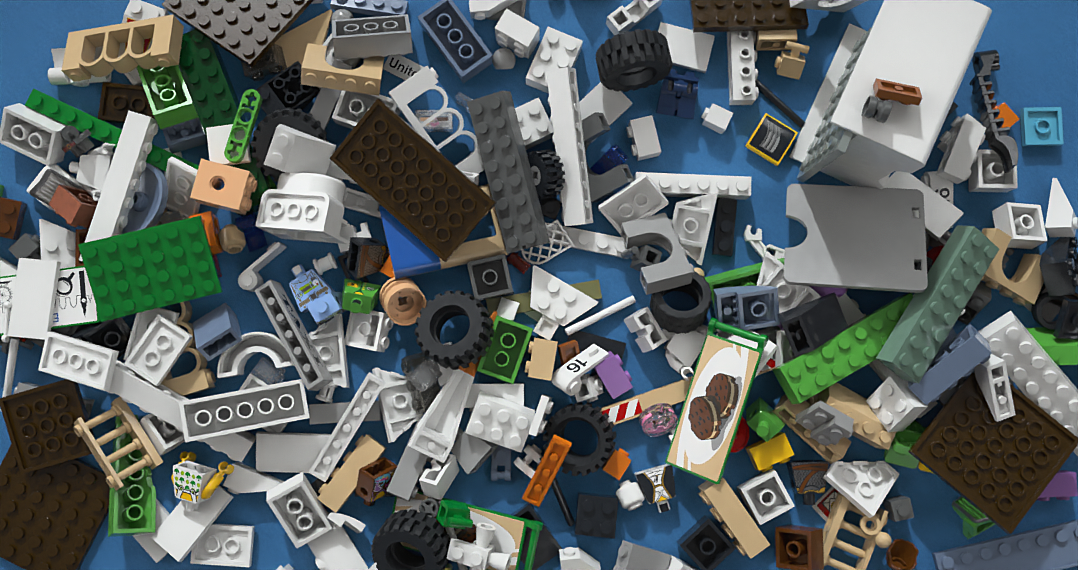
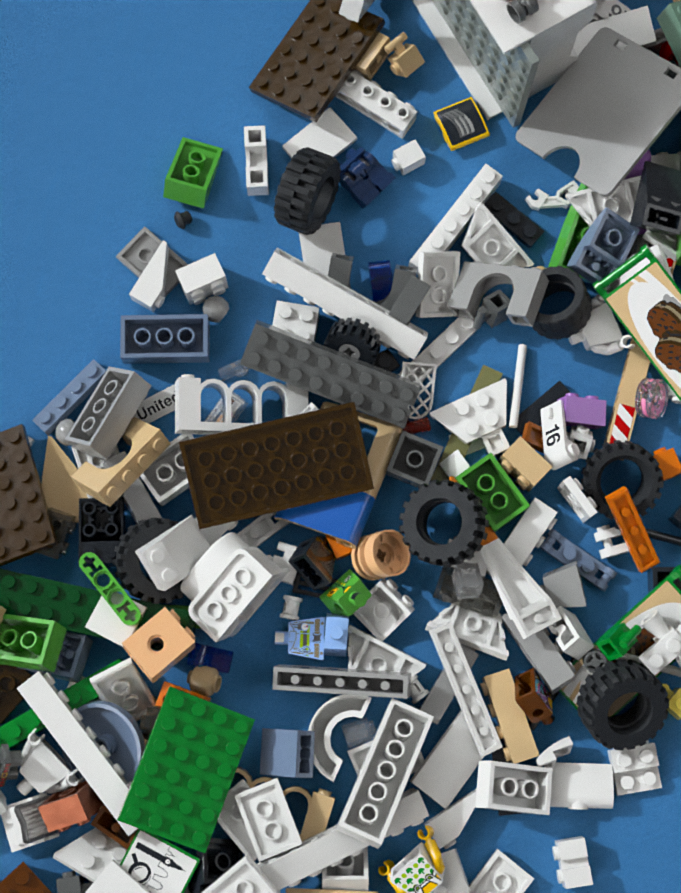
camera: 55 degrees left, 5 degrees down
(250, 278) = (256, 688): white door -> none
(500, 421) = (557, 541): white brick -> none
(555, 52) = (246, 259): white brick -> none
(604, 191) = (409, 300): none -> dark grey slope
(644, 138) = (380, 234): white brick -> none
(646, 328) = (560, 351): white brick -> none
(779, 104) = (434, 94): black bar -> none

